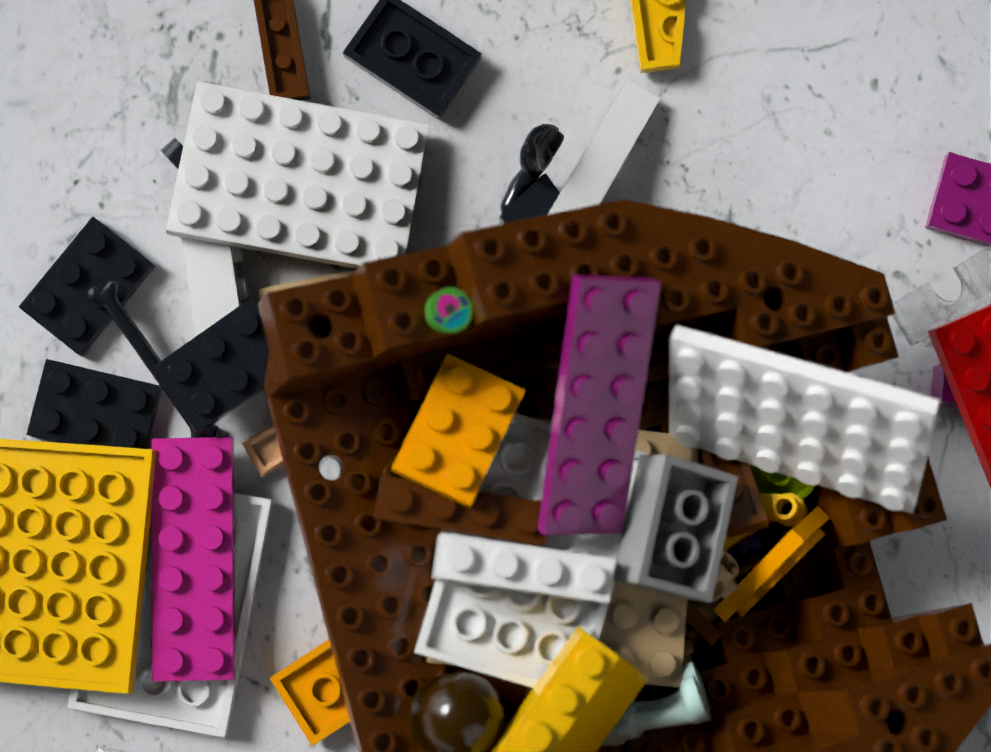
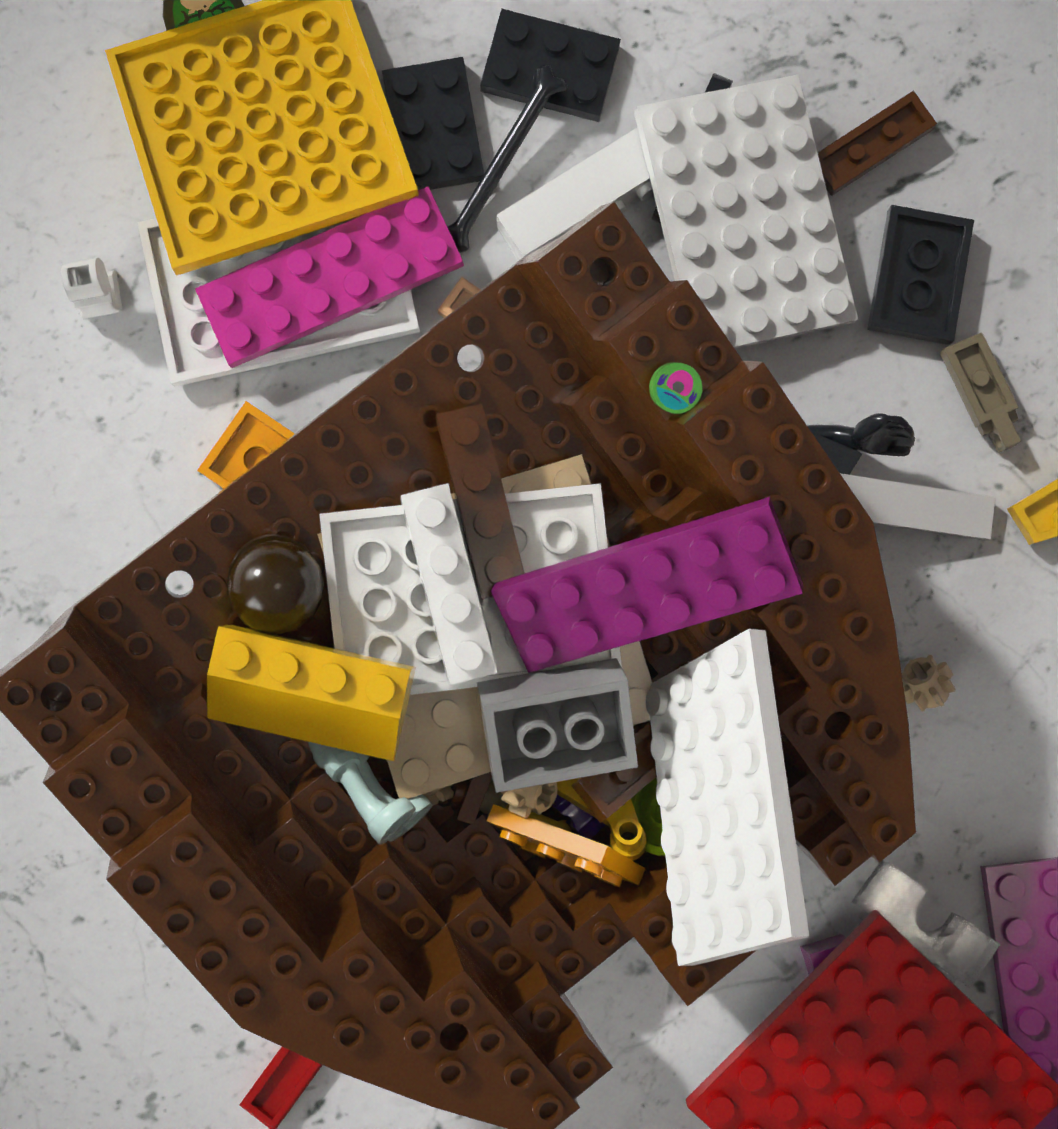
camera: 65 degrees right, 0 degrees up
(219, 366) = (517, 212): black plate -> none
(458, 431) = (559, 460): light orange plate -> none
(532, 47) = (983, 390): none -> dark tan hinge
(757, 205) = (927, 682): none -> tan gear

